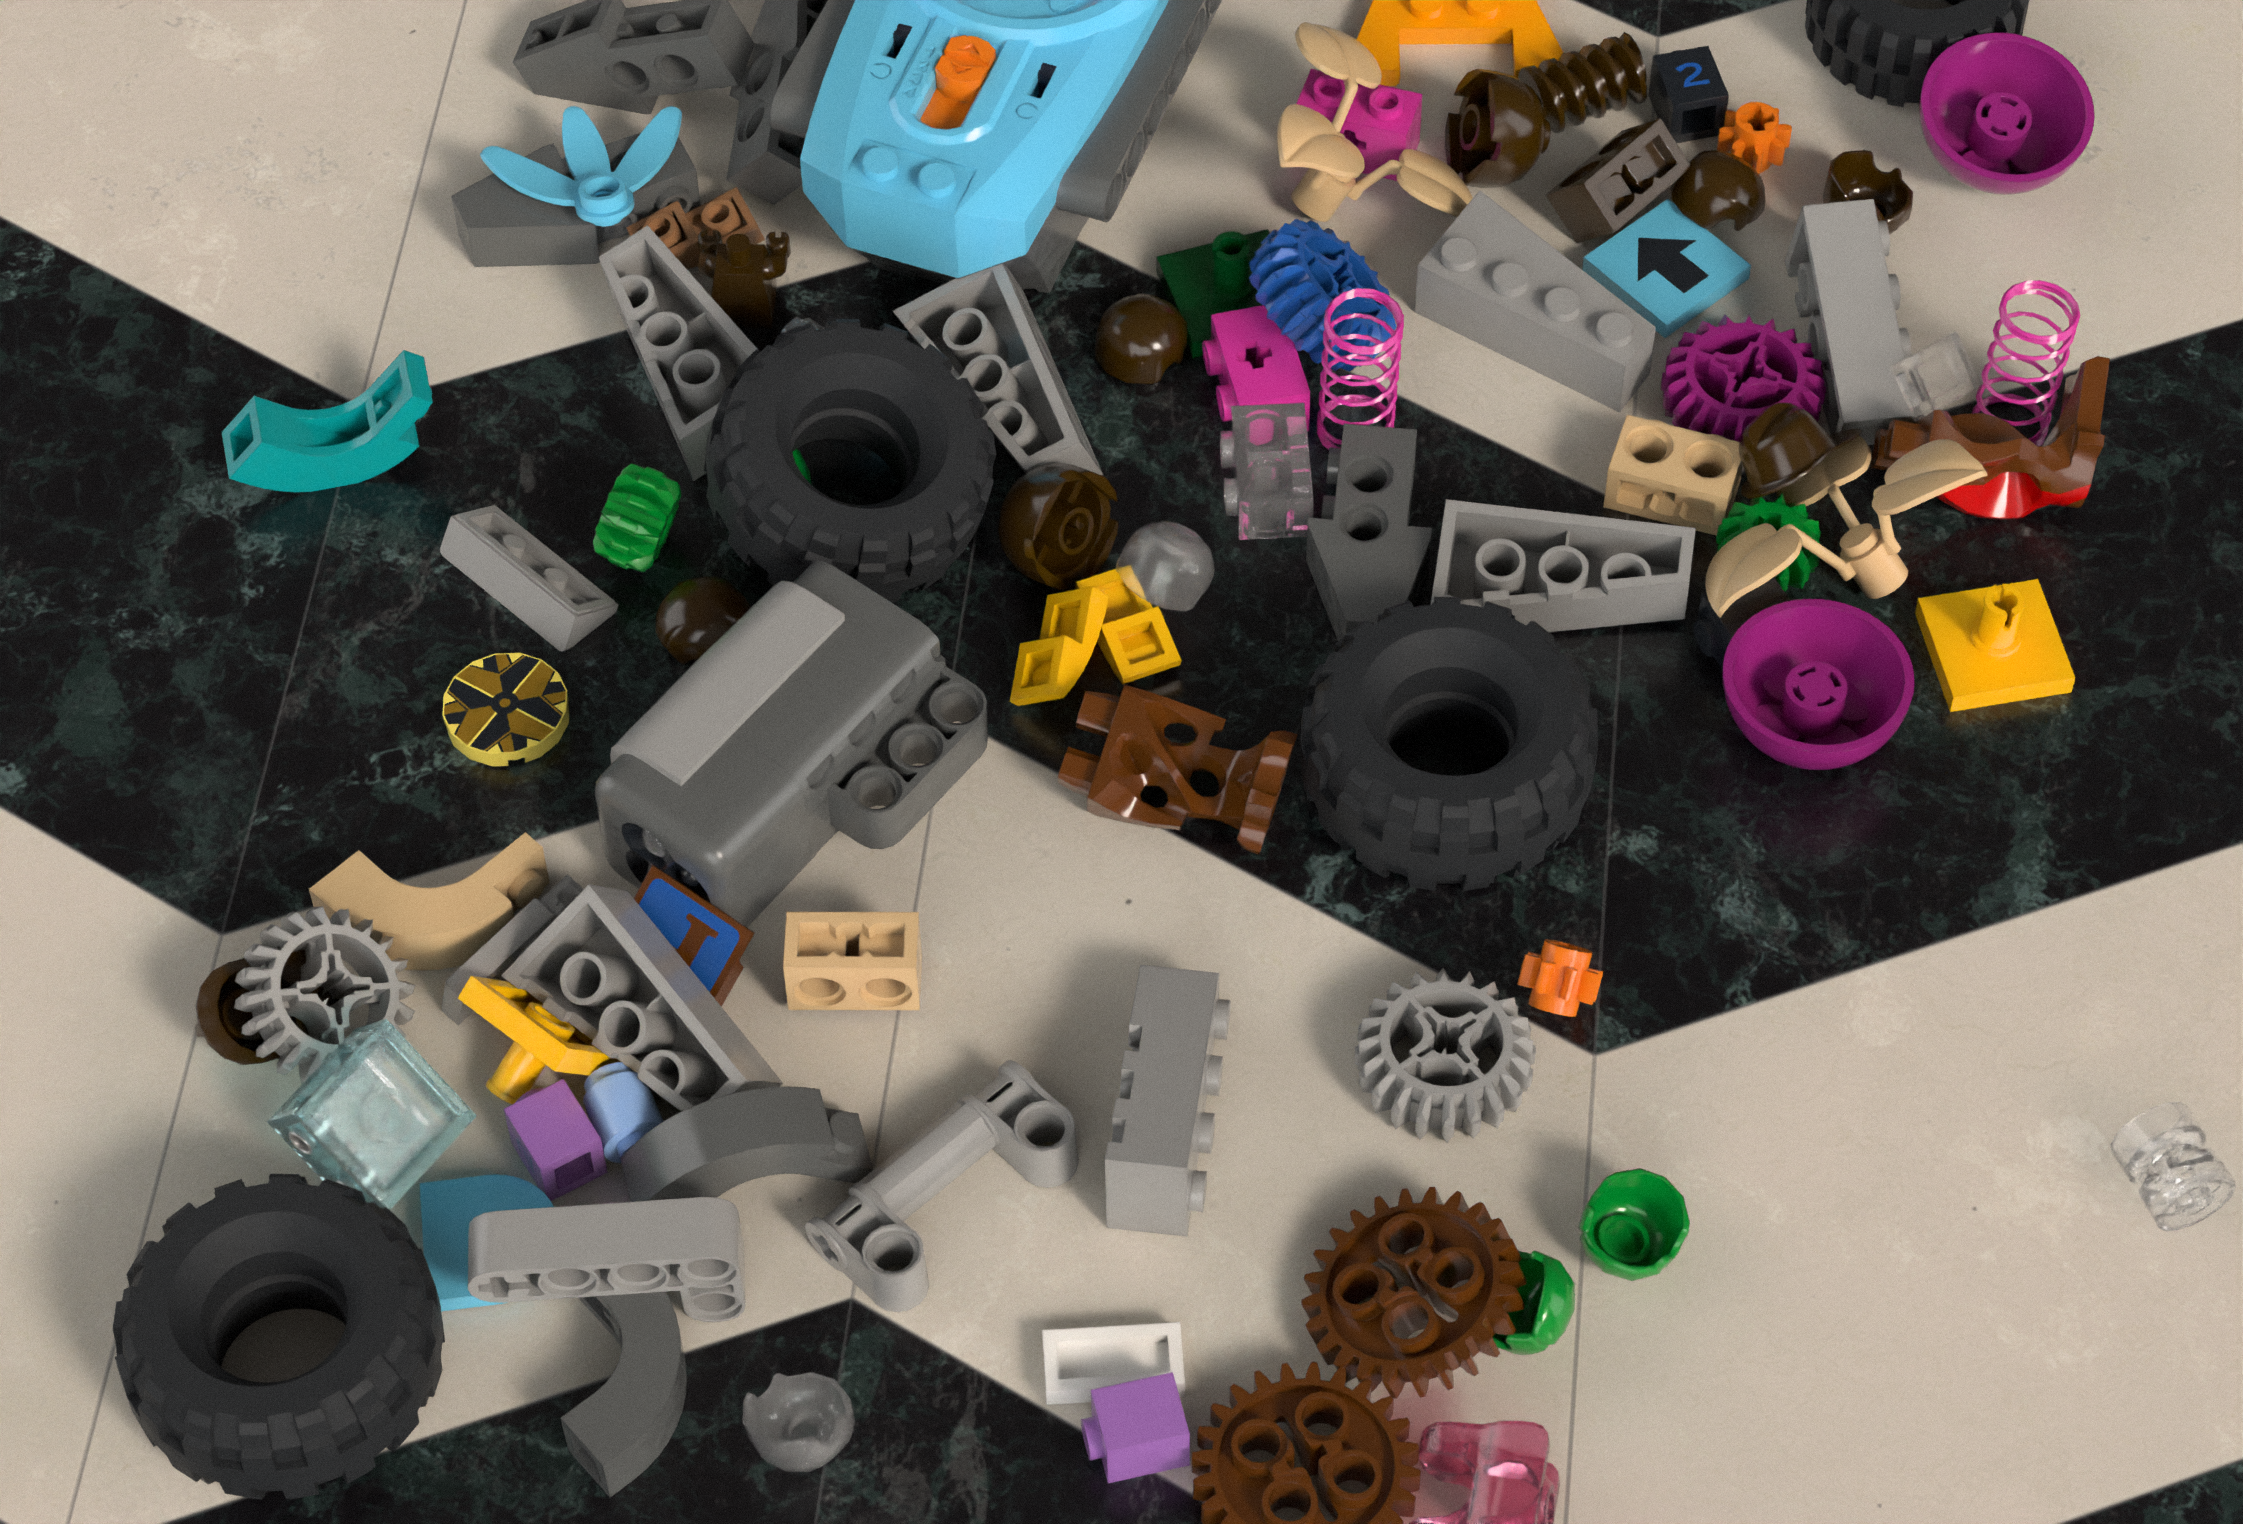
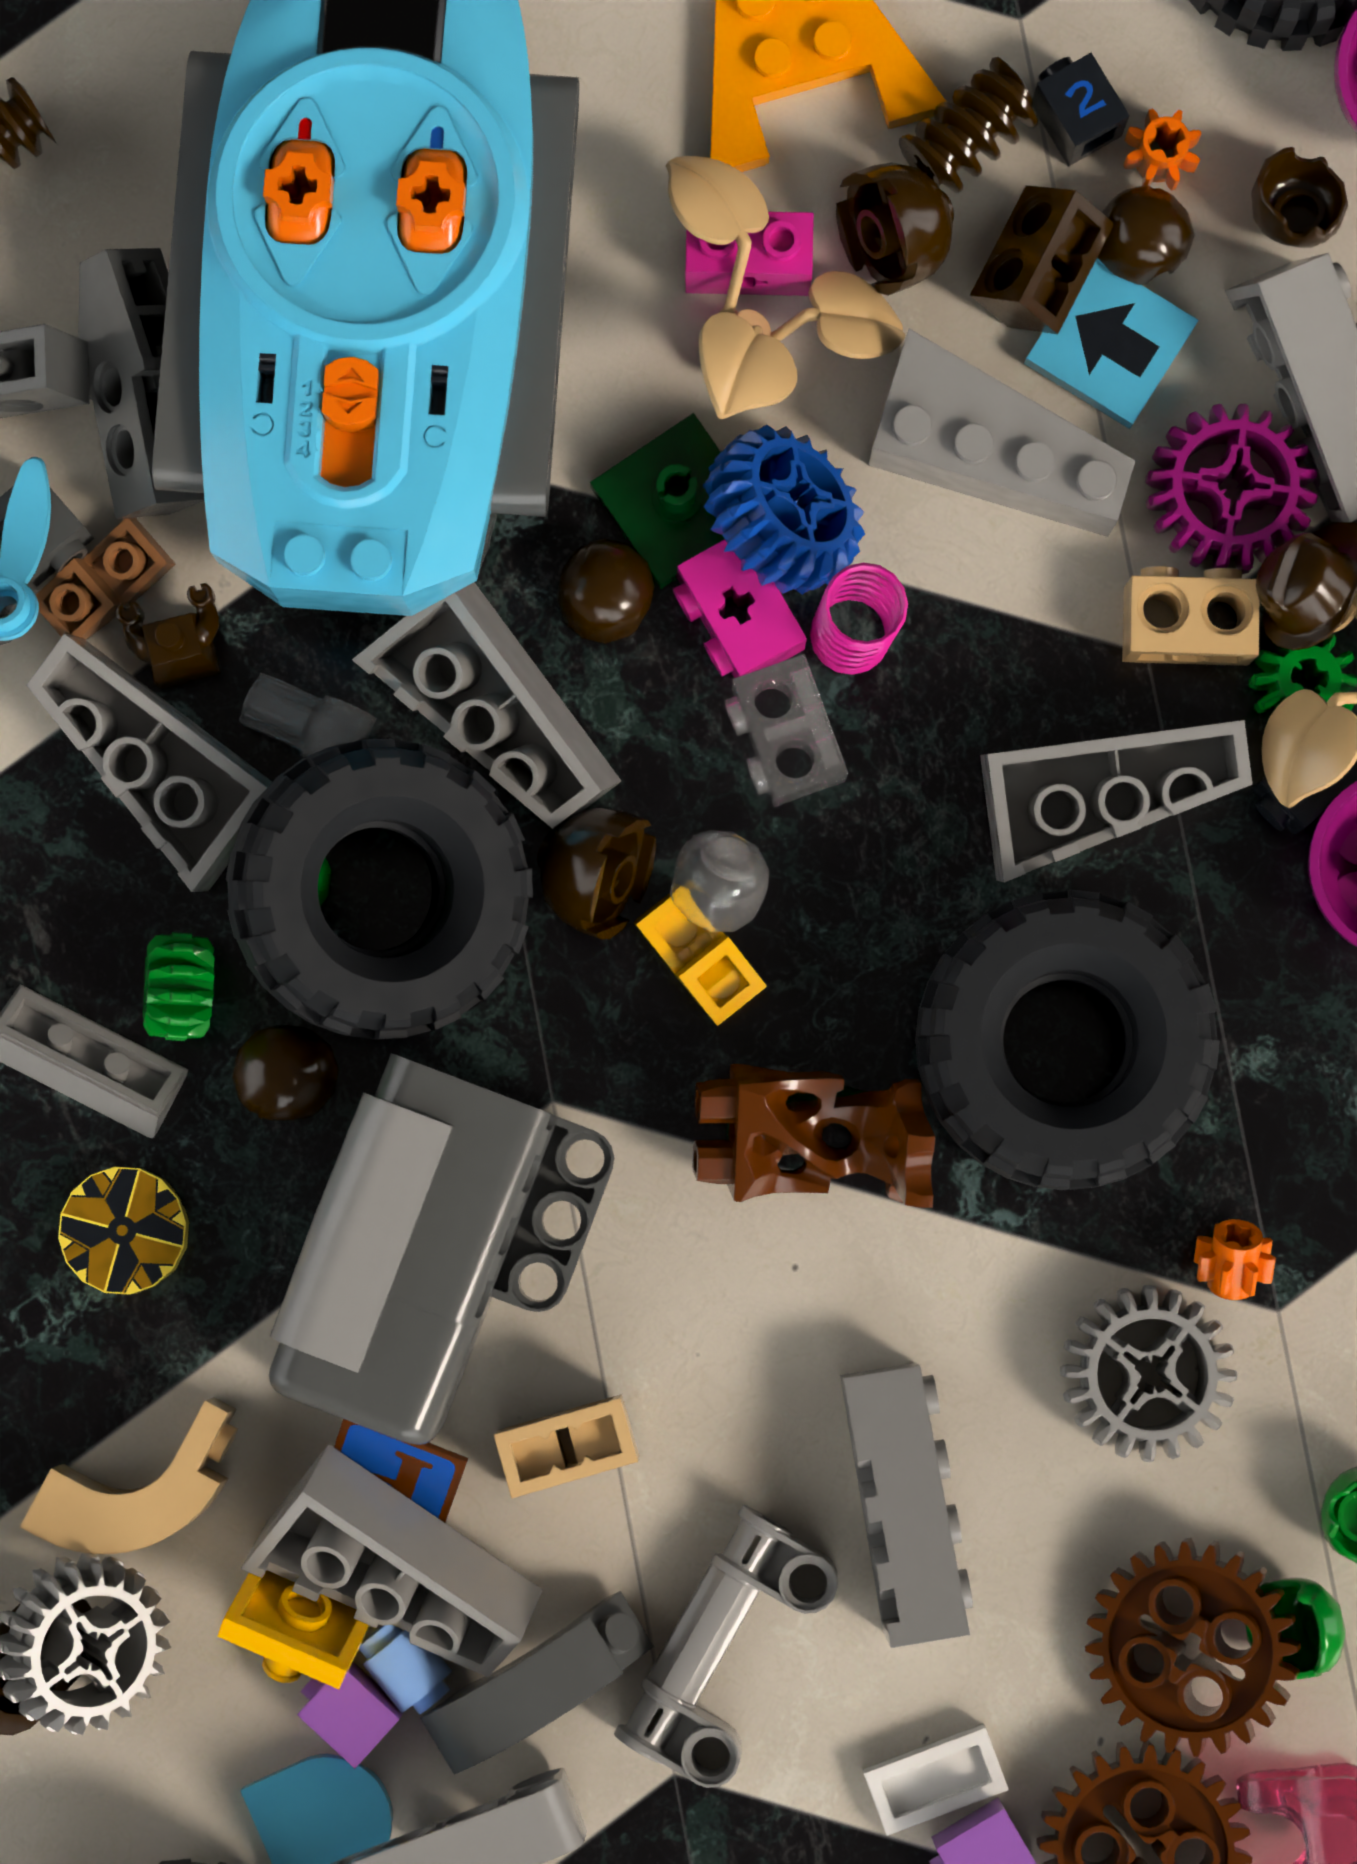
camera: 15 degrees left, 30 degrees up
(373, 1115) = (178, 1768): piece -> none
(508, 945) = (238, 1509): light grey hinge -> none
(1067, 639) = (647, 1025): yellow slope -> none
(1363, 543) = (922, 847): dark grey brick -> none

